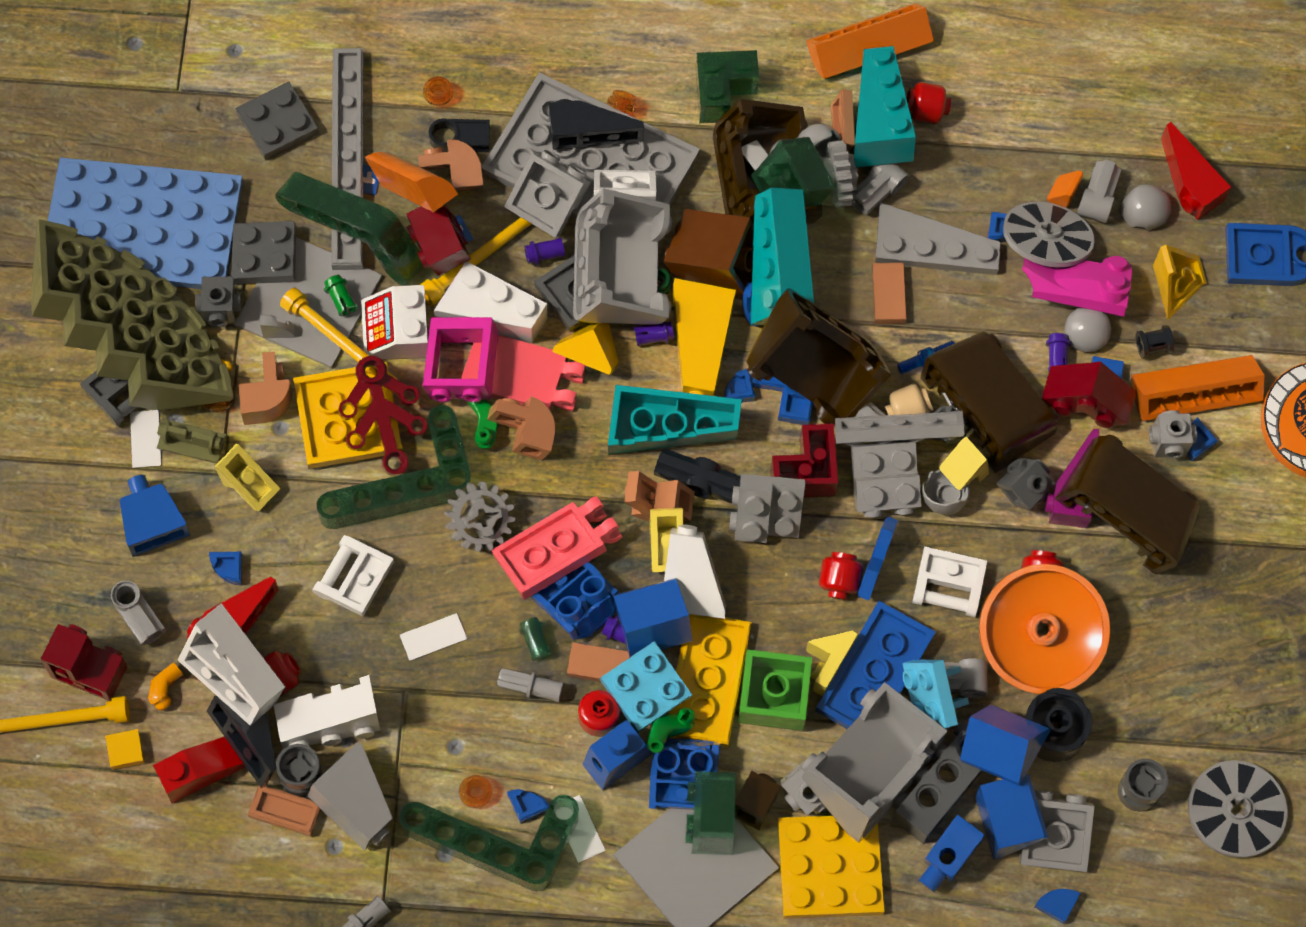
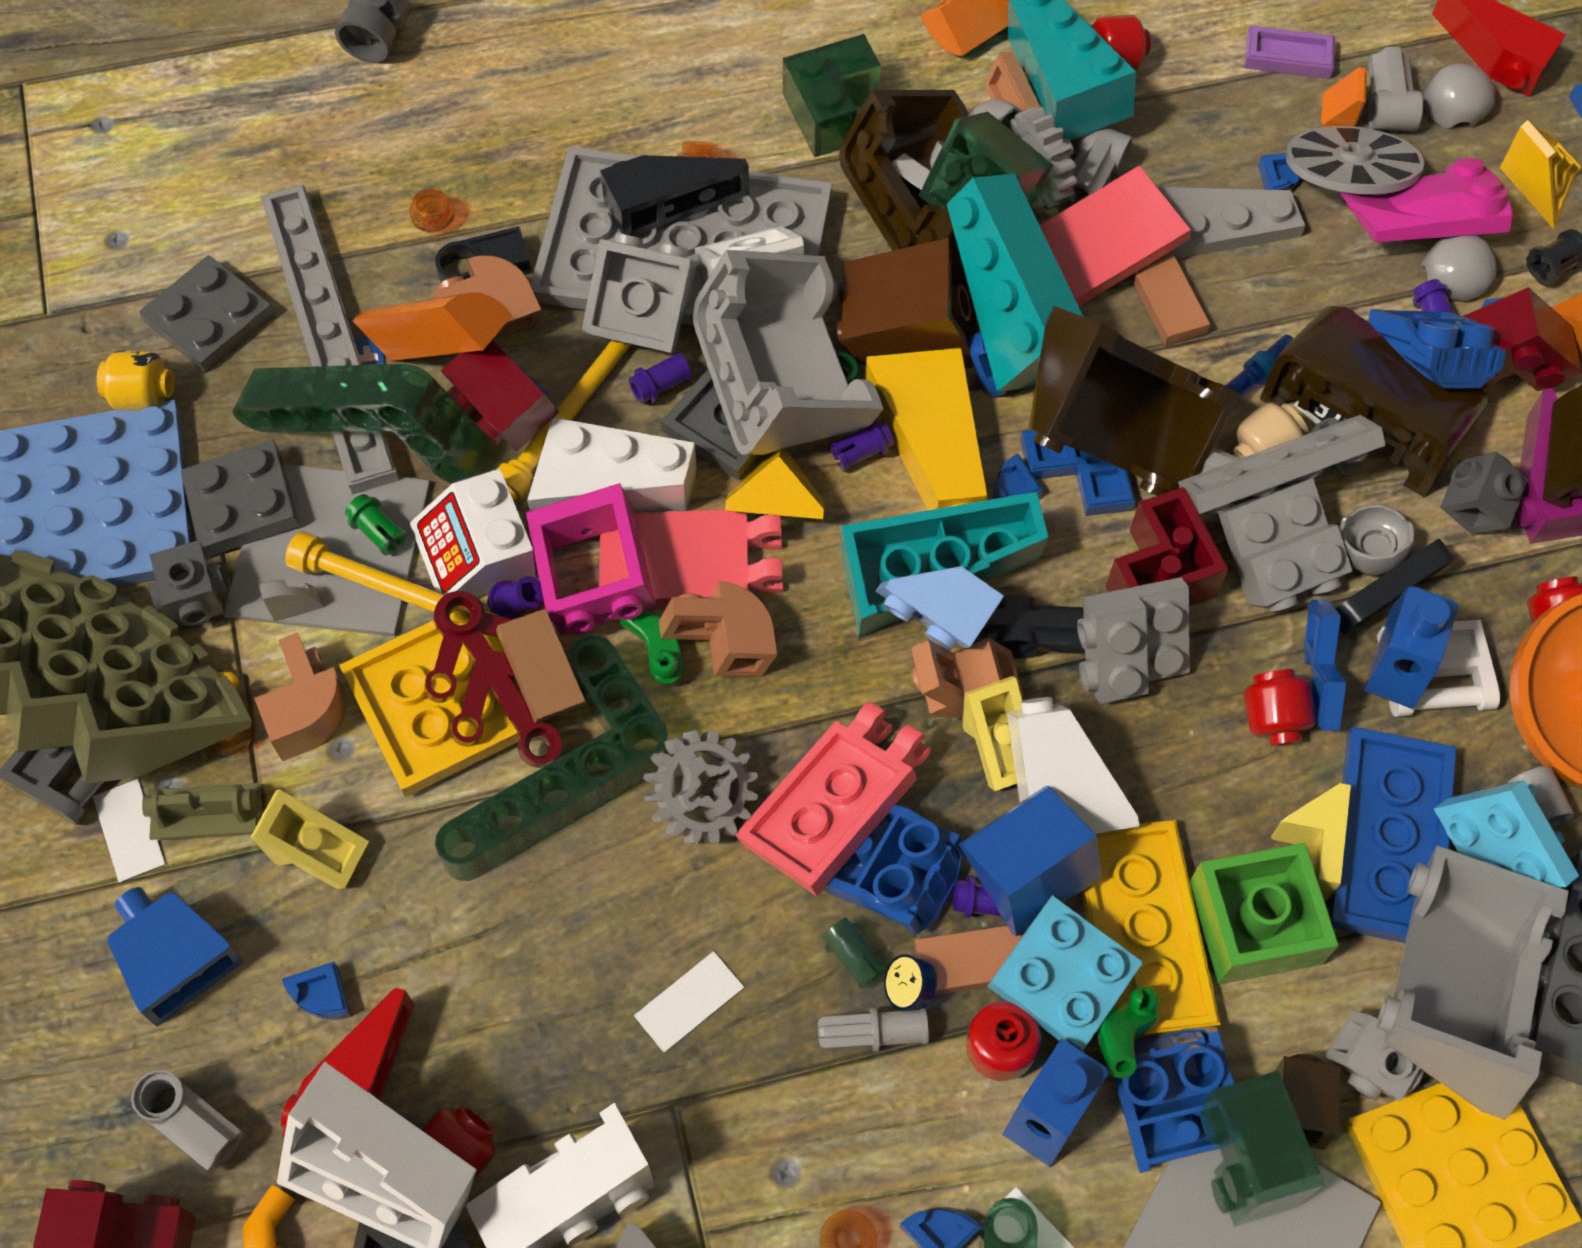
camera: 15 degrees left, 5 degrees down
(221, 156) = (134, 380): none -> yellow head
(362, 580) = (546, 945): white plate -> none
(407, 367) = (511, 598): none -> dark purple pin
(409, 415) = (540, 665): none -> medium nougat tile
(560, 665) = (910, 982): none -> tile
(658, 449) = (946, 601): none -> light blue slope
(860, 241) = (1113, 234): none -> coral tile
(929, 559) = (1414, 631): none -> blue torso
(943, 523) = (1392, 584): none -> black beam
(965, 464) = (1394, 487): light yellow slope -> none
(1034, 381) = (1442, 345): none -> blue slope
(1047, 140) = (1289, 52): none -> medium lavender tile

